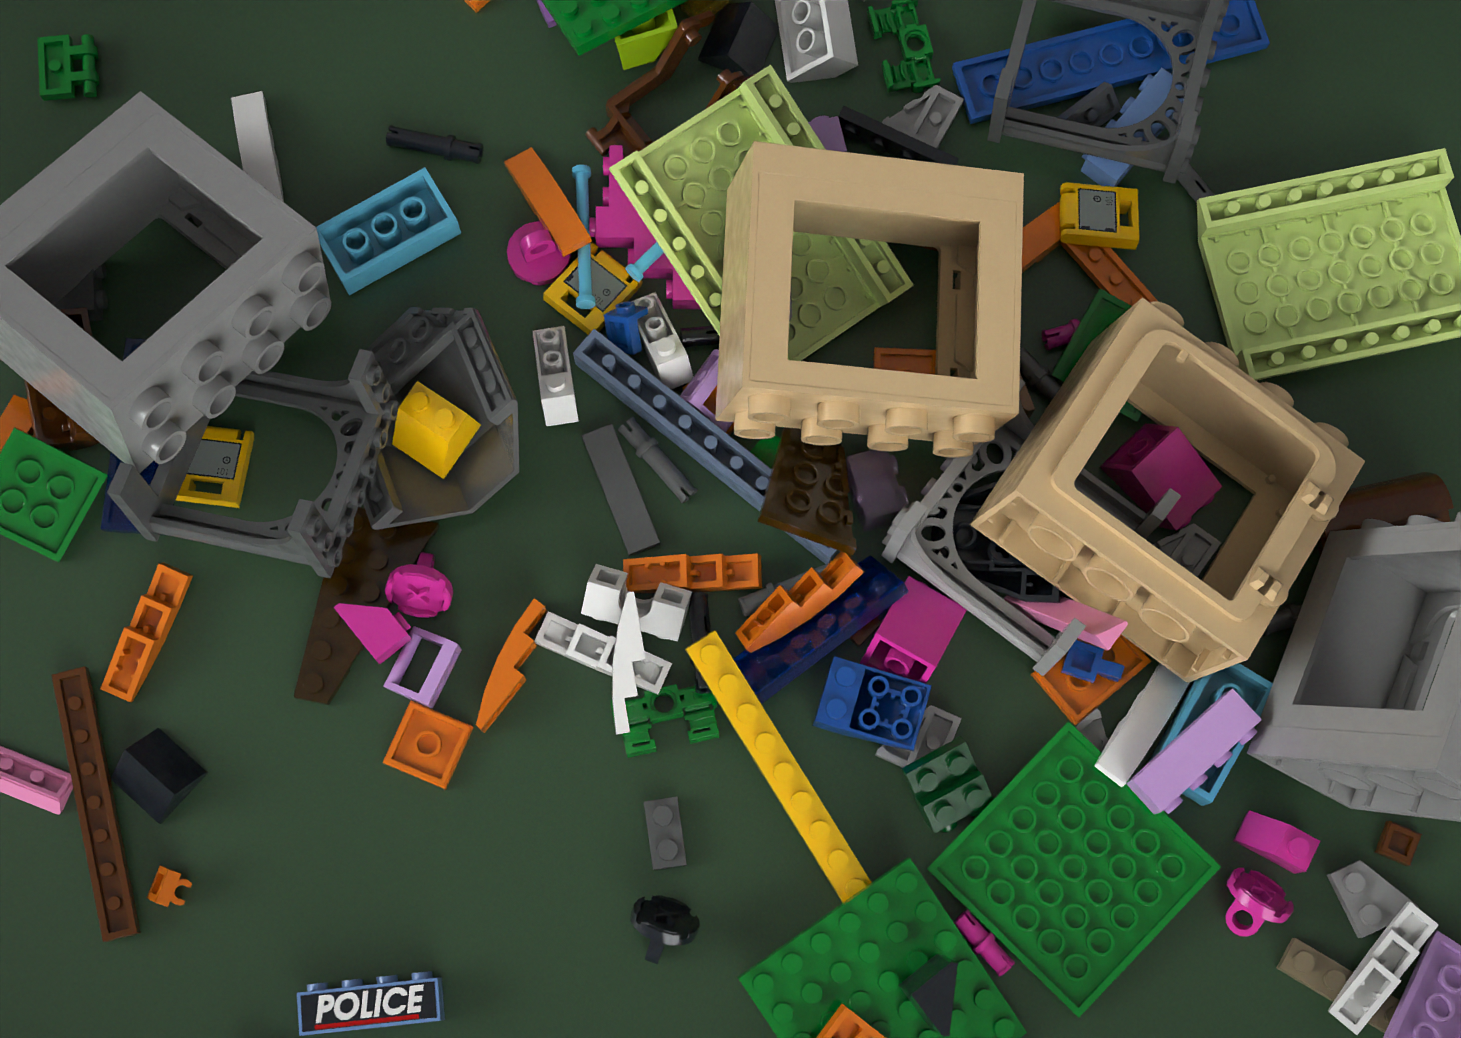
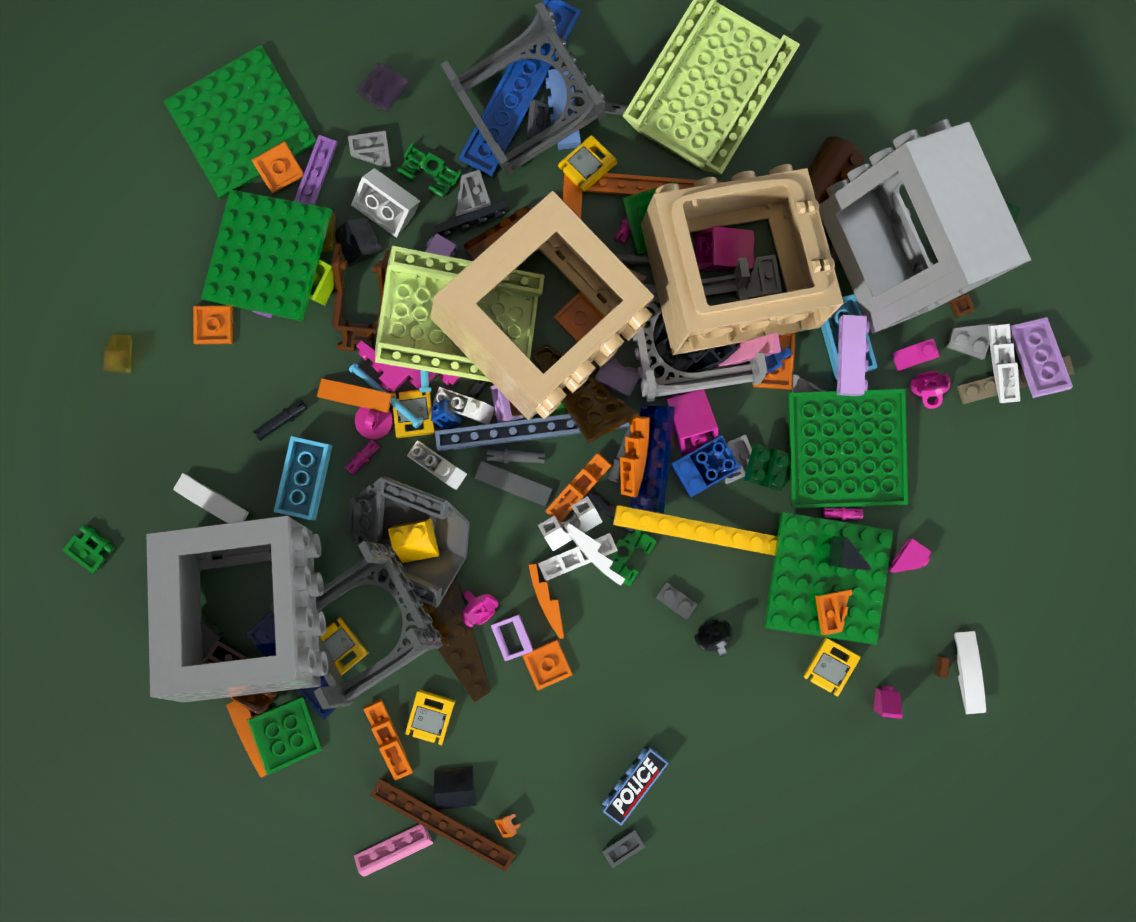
camera: 35 degrees left, 10 degrees up
(217, 662) = (427, 720): none -> container
(376, 628) = (479, 643): dark pink slope -> none
(481, 279) = (362, 457): none -> dark pink pin
(1141, 725) = (819, 364): white slope -> none

